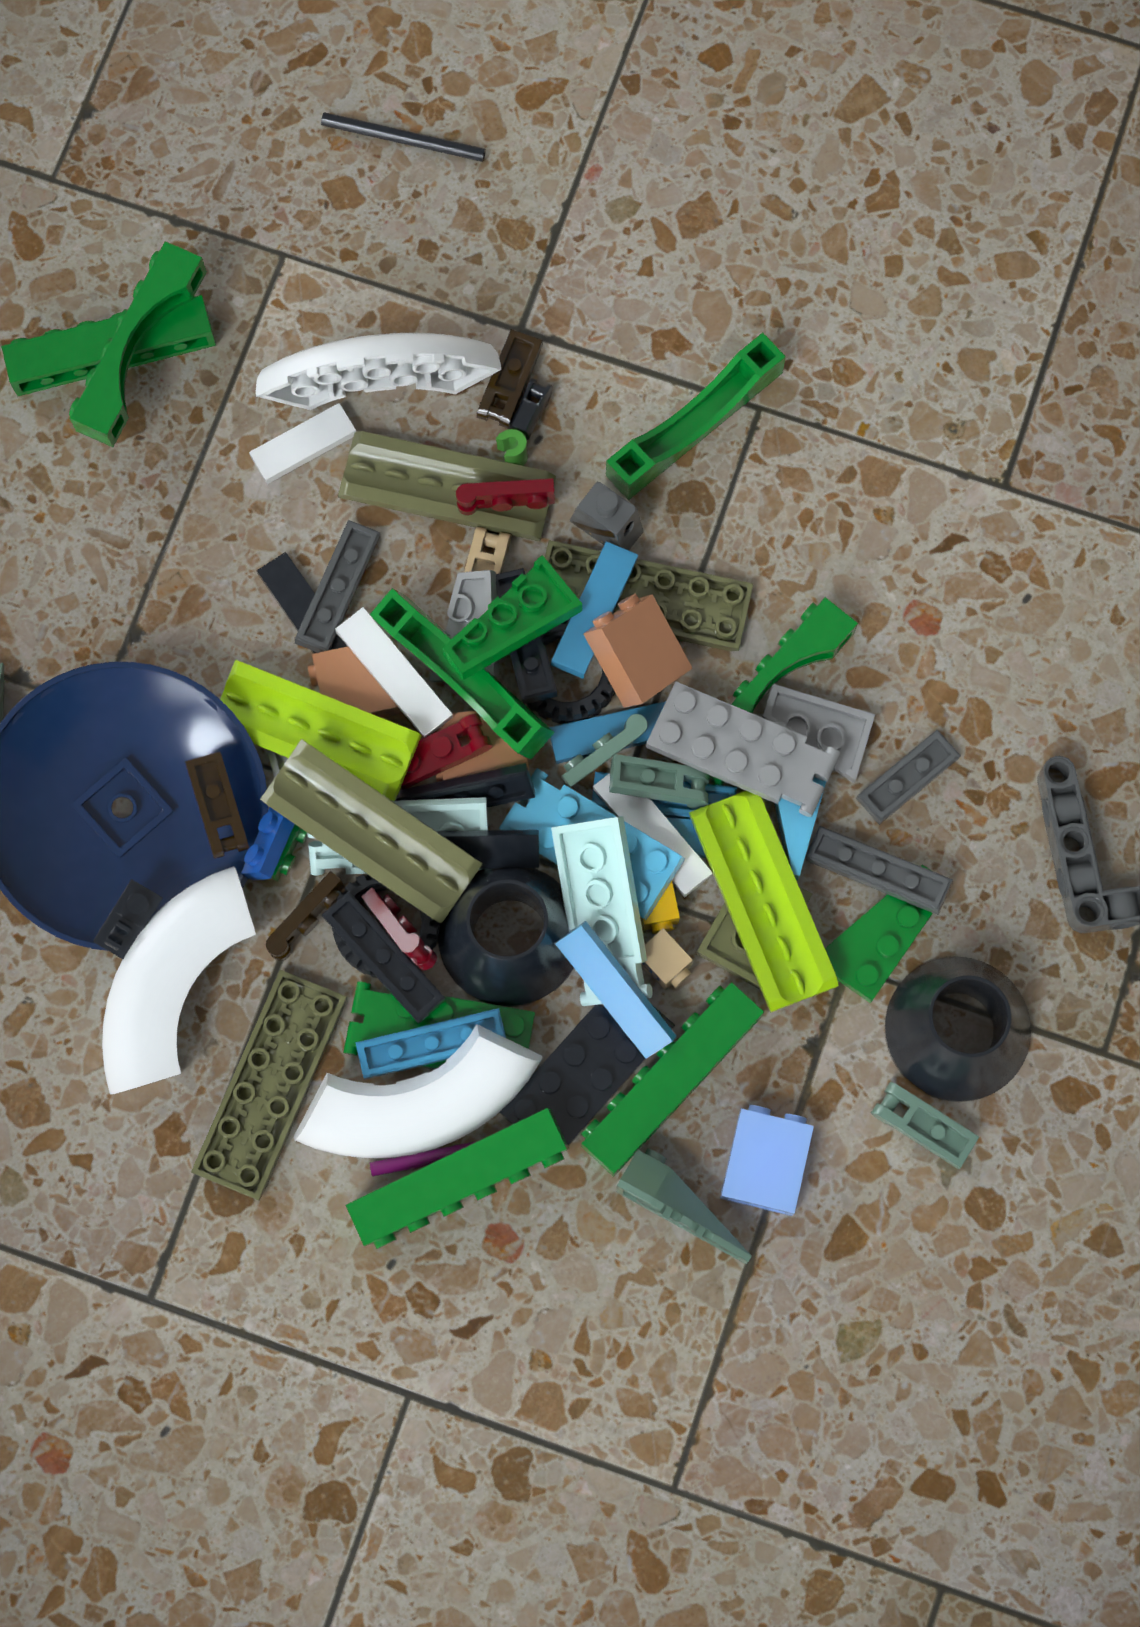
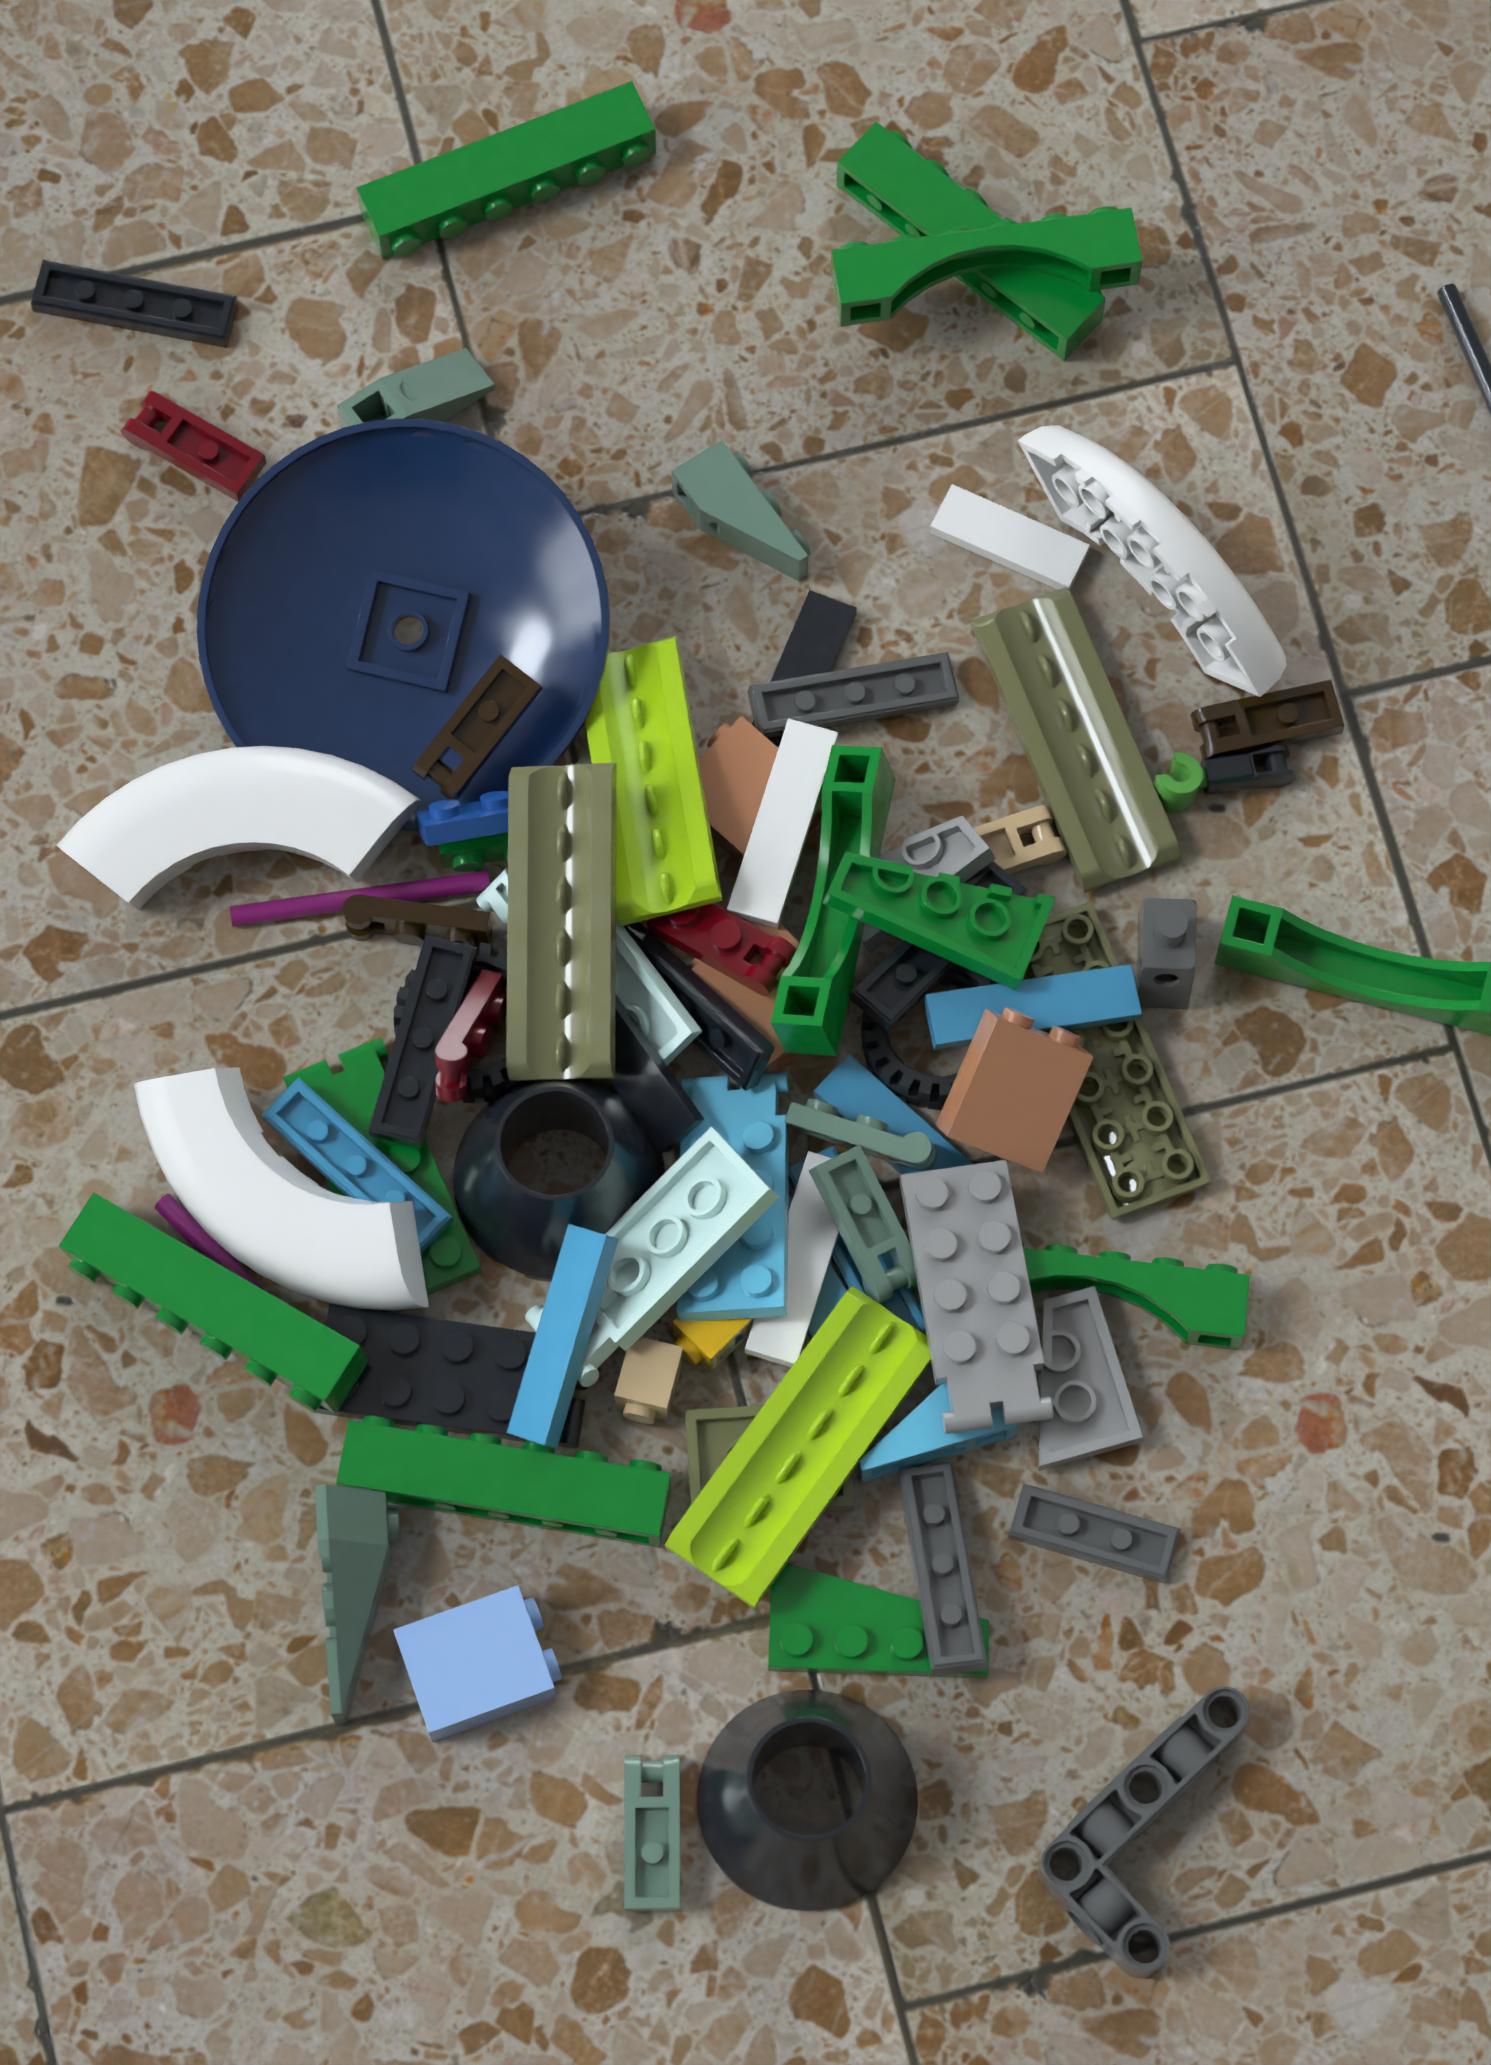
camera: 55 degrees right, 5 degrees down
(127, 919) = (274, 721): black plate -> none
(177, 579) = (731, 508): none -> sand green slope
(259, 949) = (333, 901): none -> magenta piece
(269, 1085) = (188, 1019): olive plate -> none
(505, 495) = (1104, 807): dark red plate -> none

